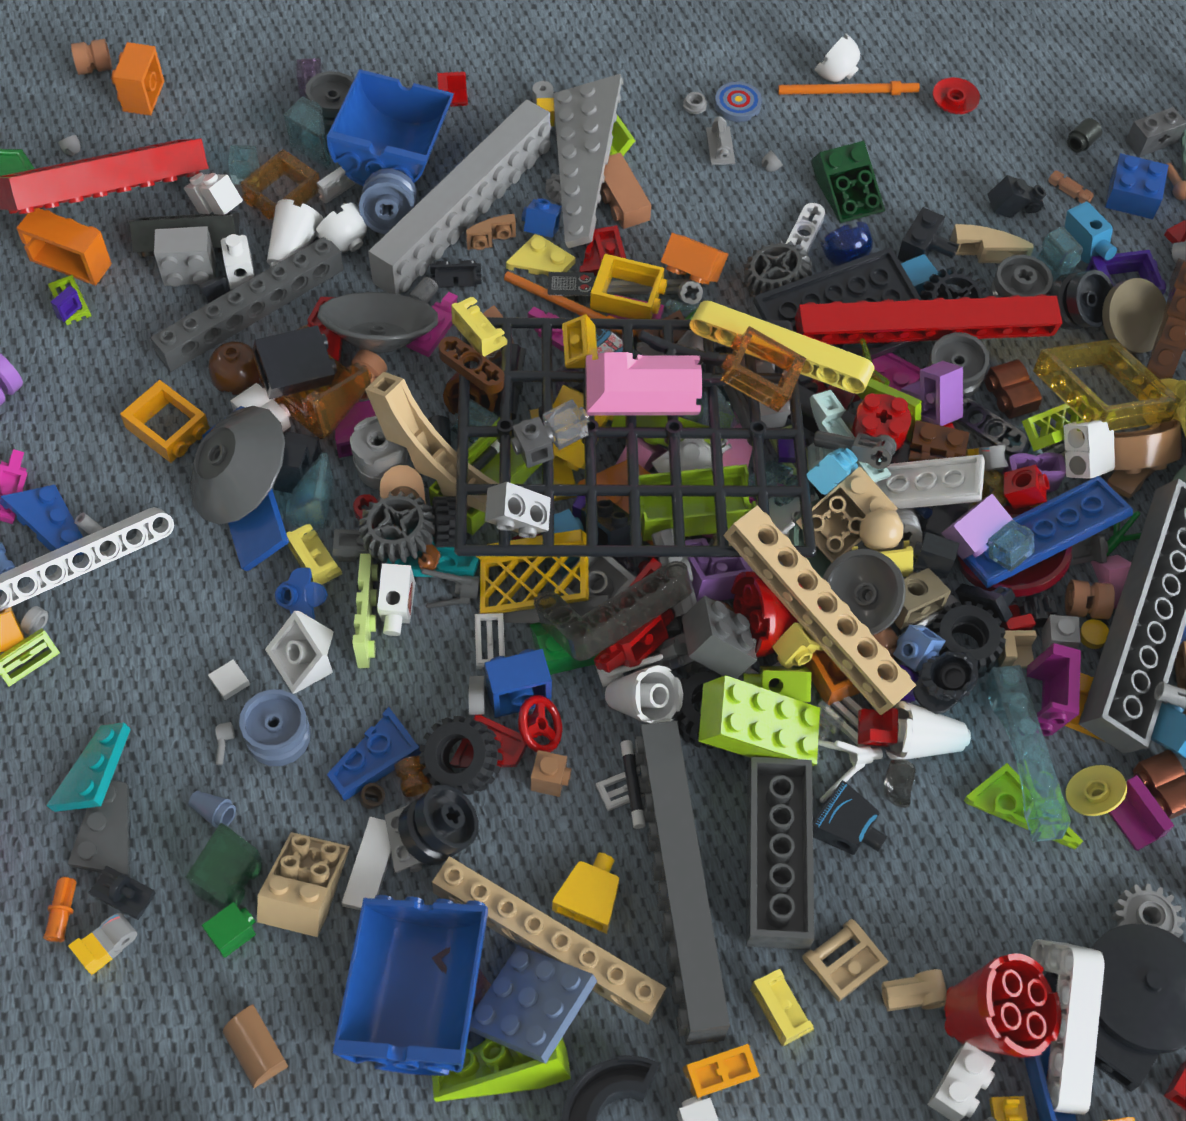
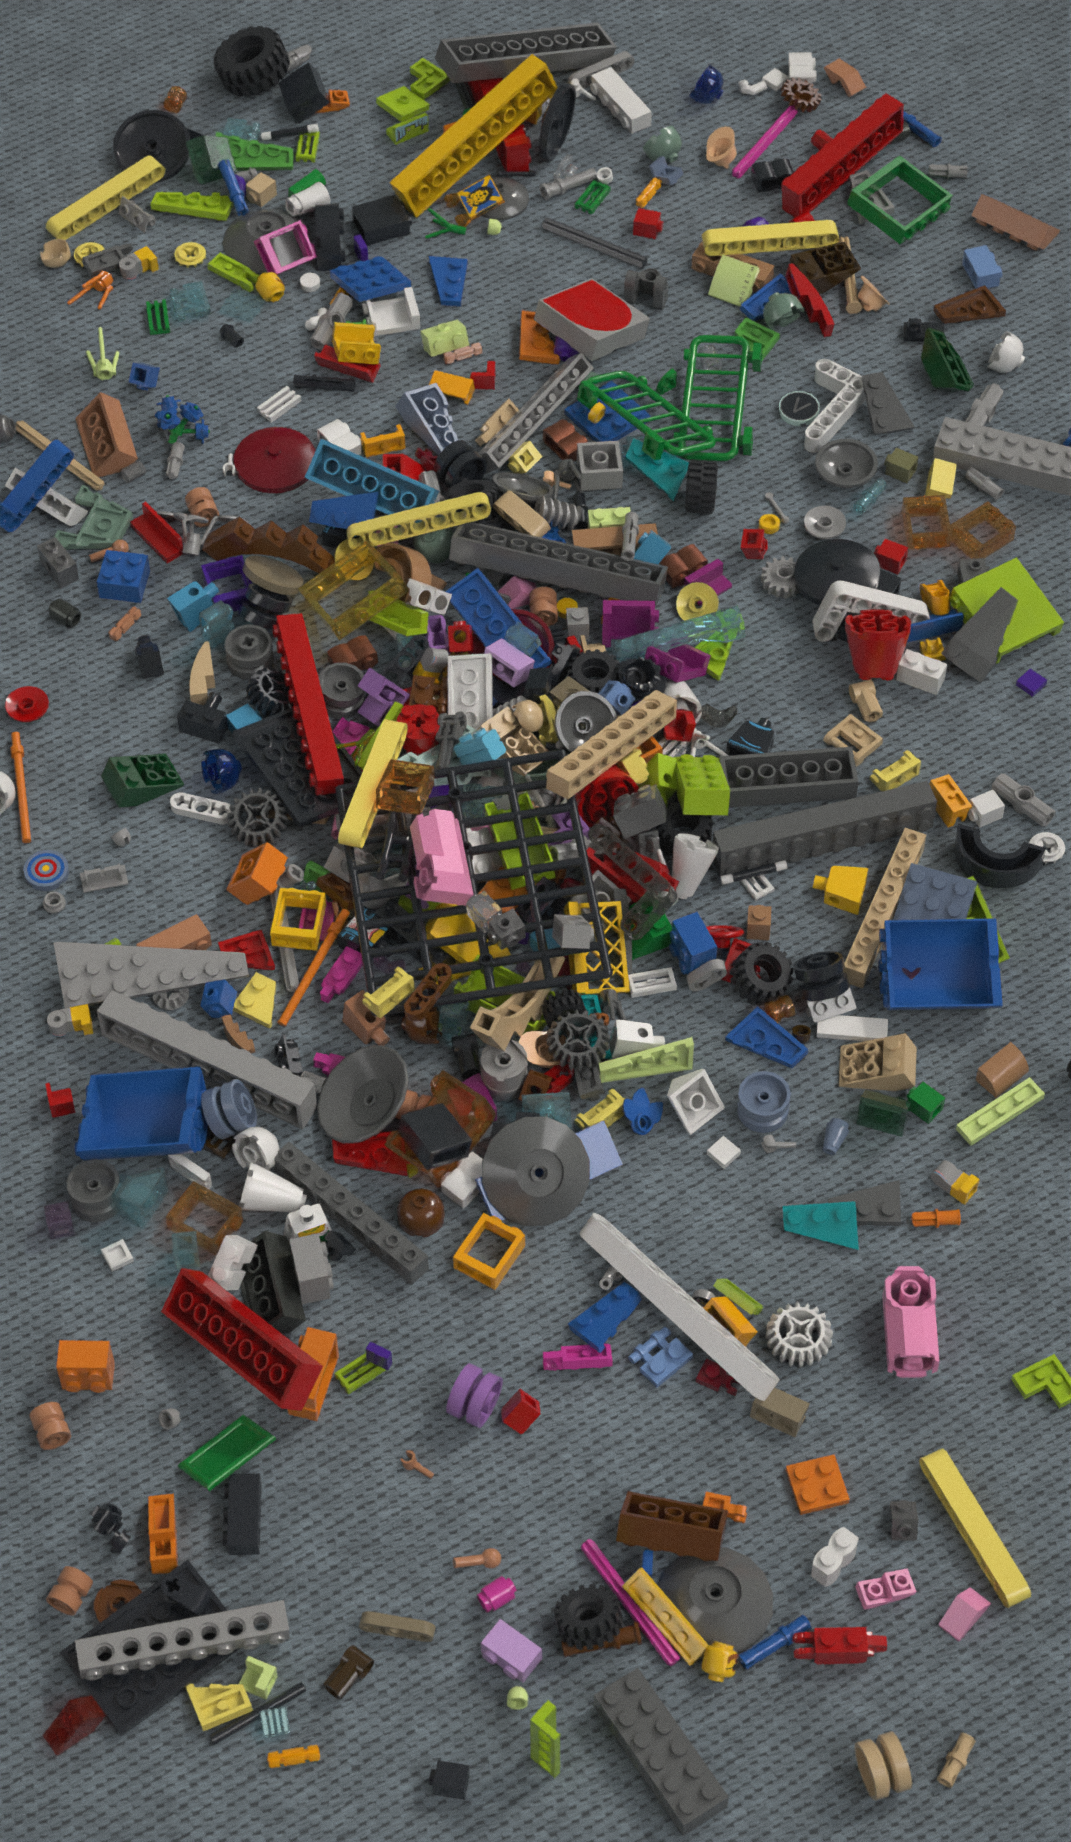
camera: 95 degrees left, 5 degrees down
(122, 892) = (916, 1175): black hips -> none
(193, 1029) = (1000, 1111): none -> yellowish green plate
(265, 123) = (117, 1255): none -> white tile
(353, 484) = (535, 1079): none -> reddish brown brick
(570, 283) = (291, 968): black sticker -> none
(579, 341) = (390, 922): yellow slope -> none
(979, 738) = (679, 662): none -> magenta panel

